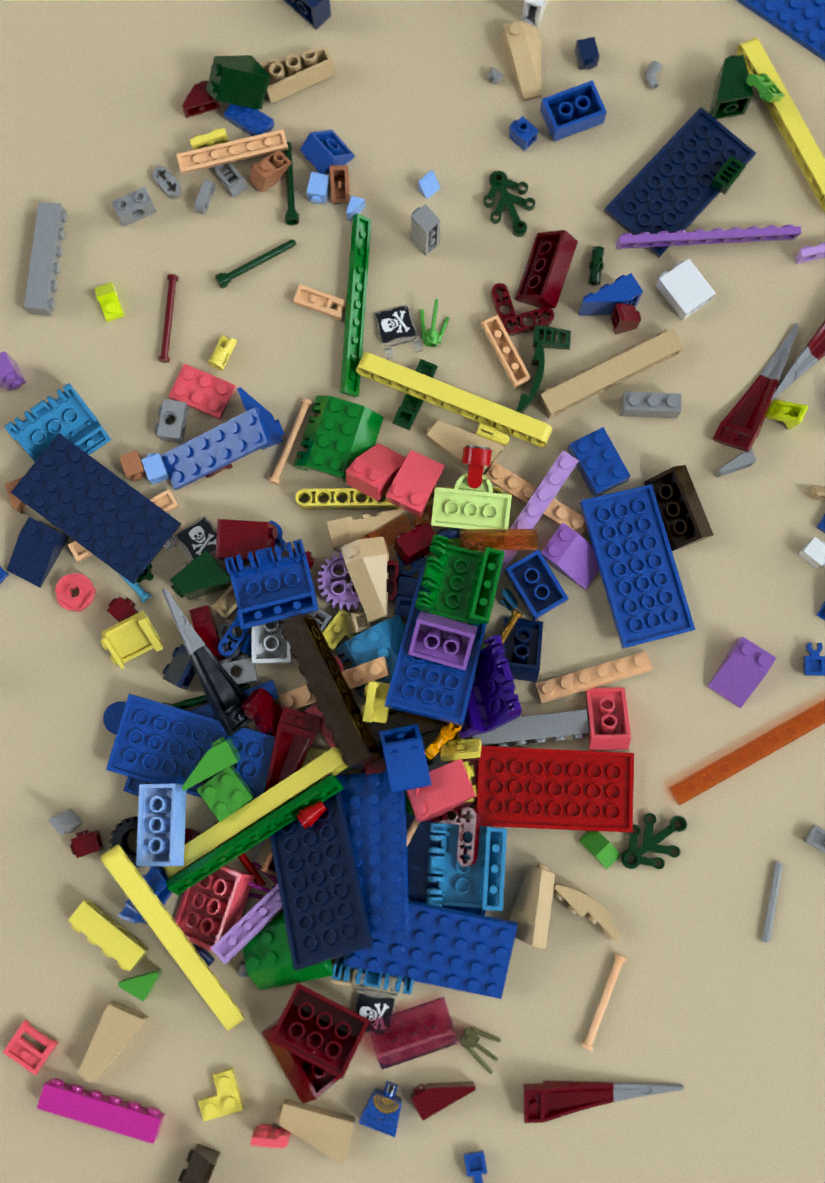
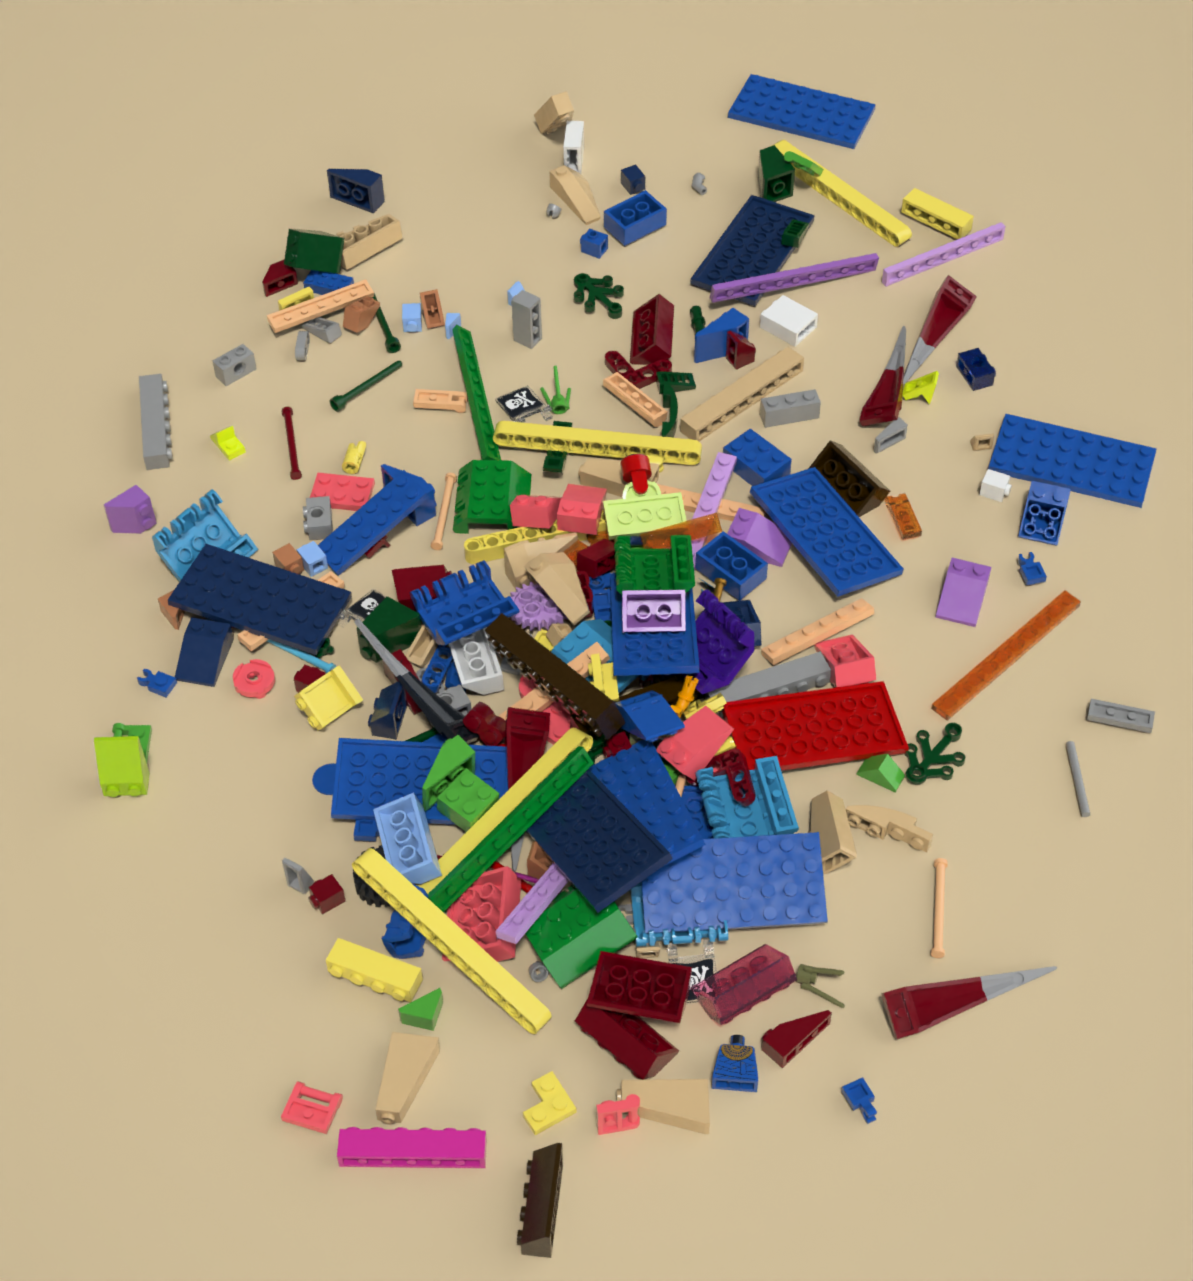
camera: 15 degrees left, 30 degrees down
(170, 180) = (264, 345): light grey beam -> none
(311, 813) = (564, 791): red cone -> none
(325, 149) = (406, 289): blue slope -> none
(716, 564) = (903, 516): none -> clear orange plate

